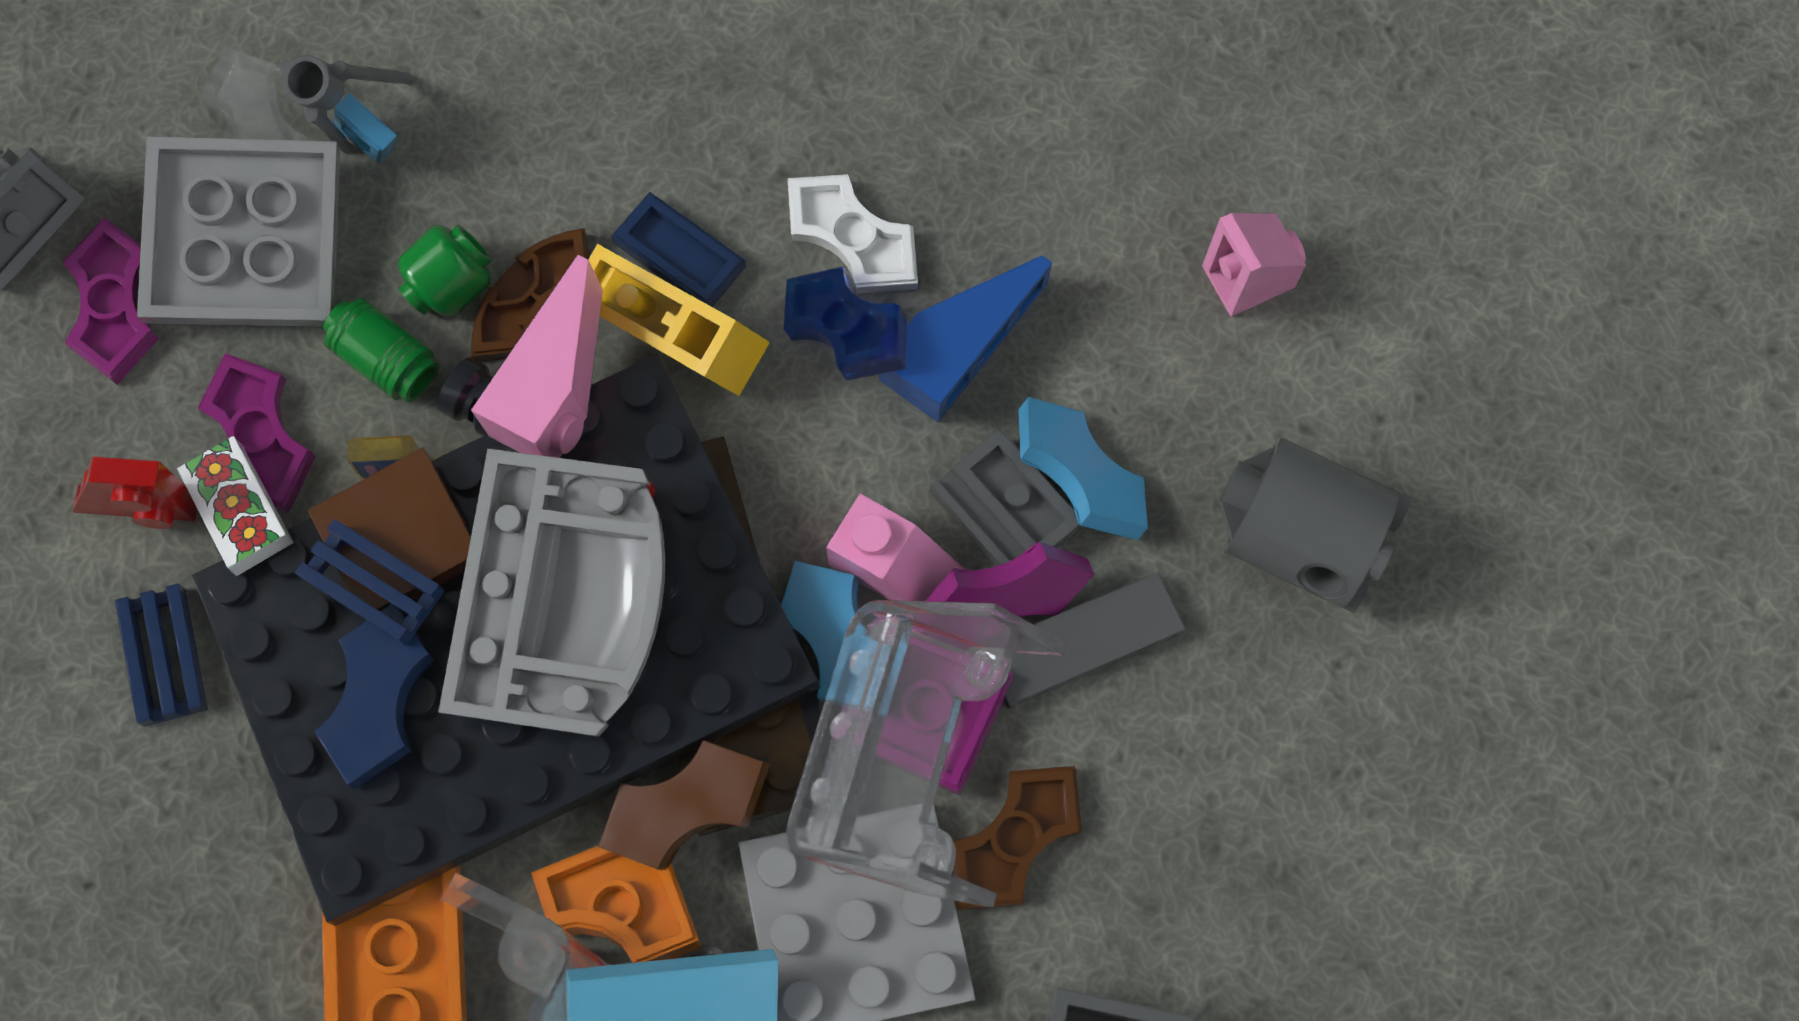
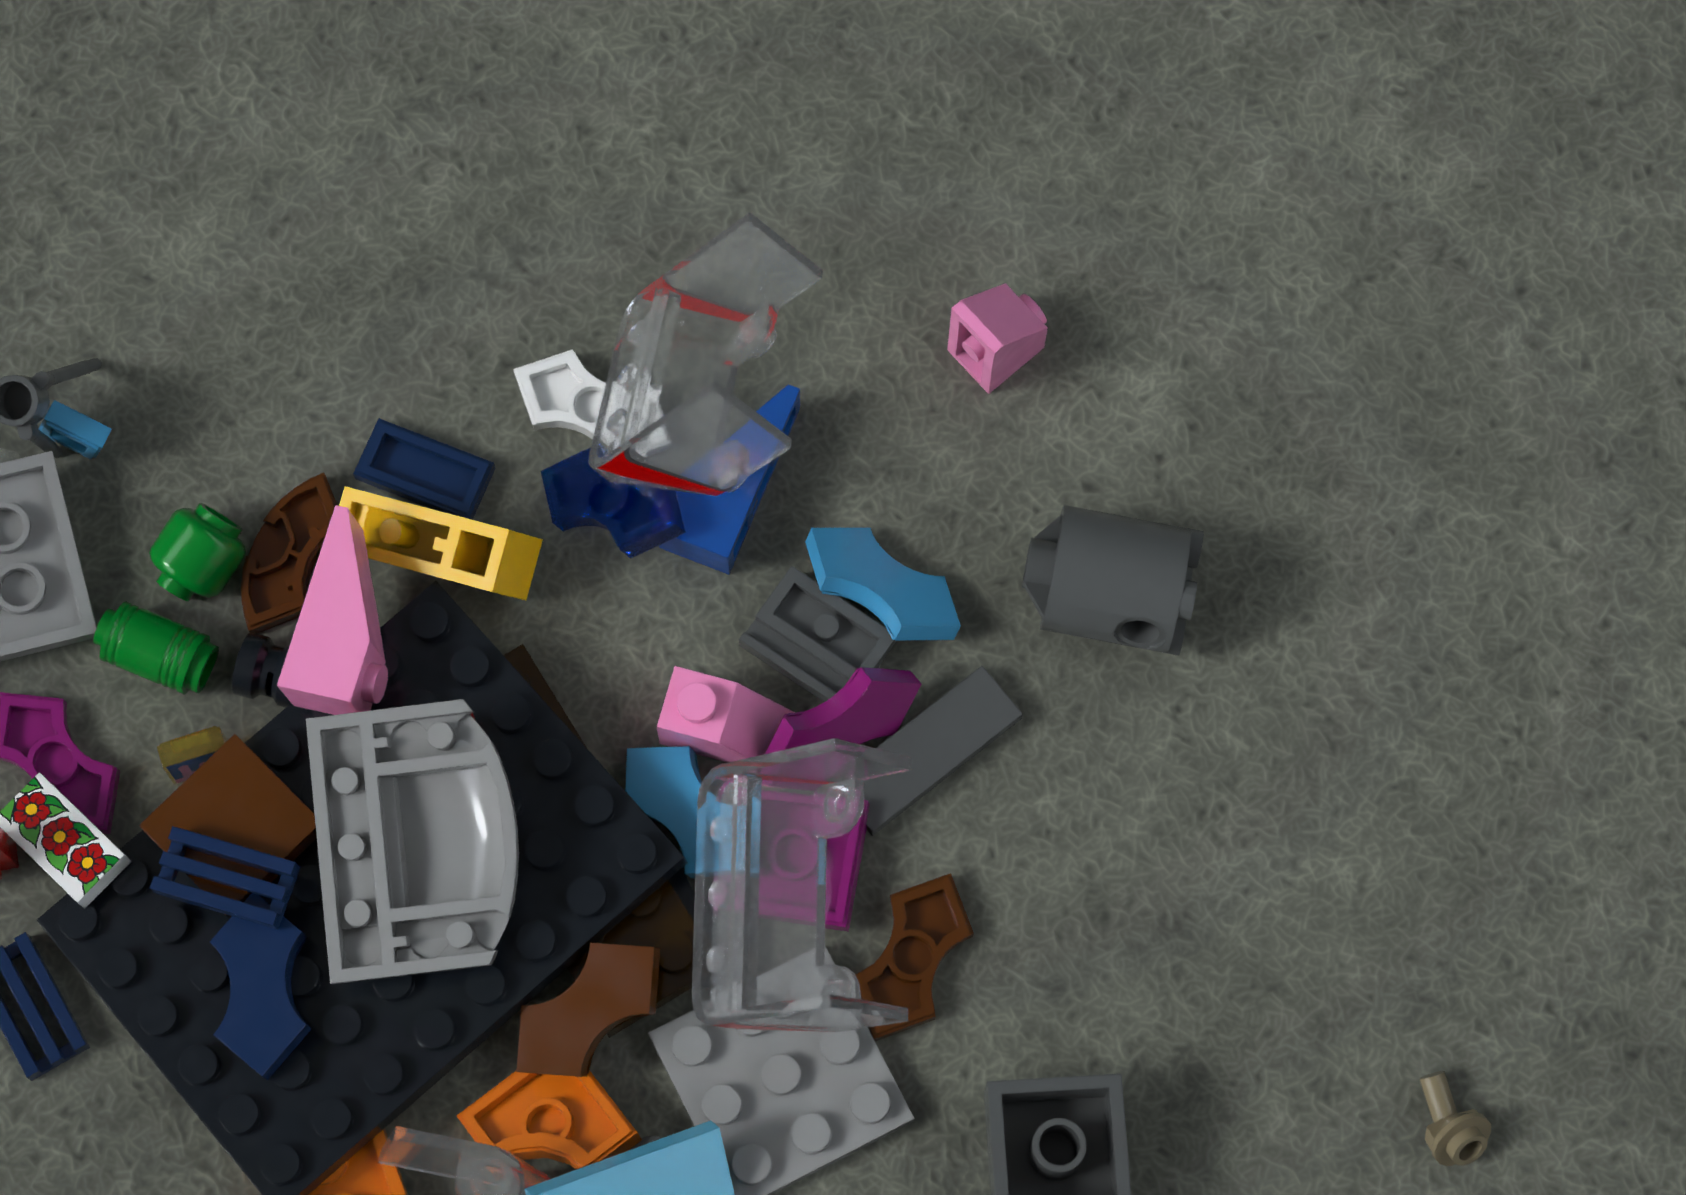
camera: 15 degrees left, 0 degrees up
(931, 230) = (676, 360): none -> clear windscreen

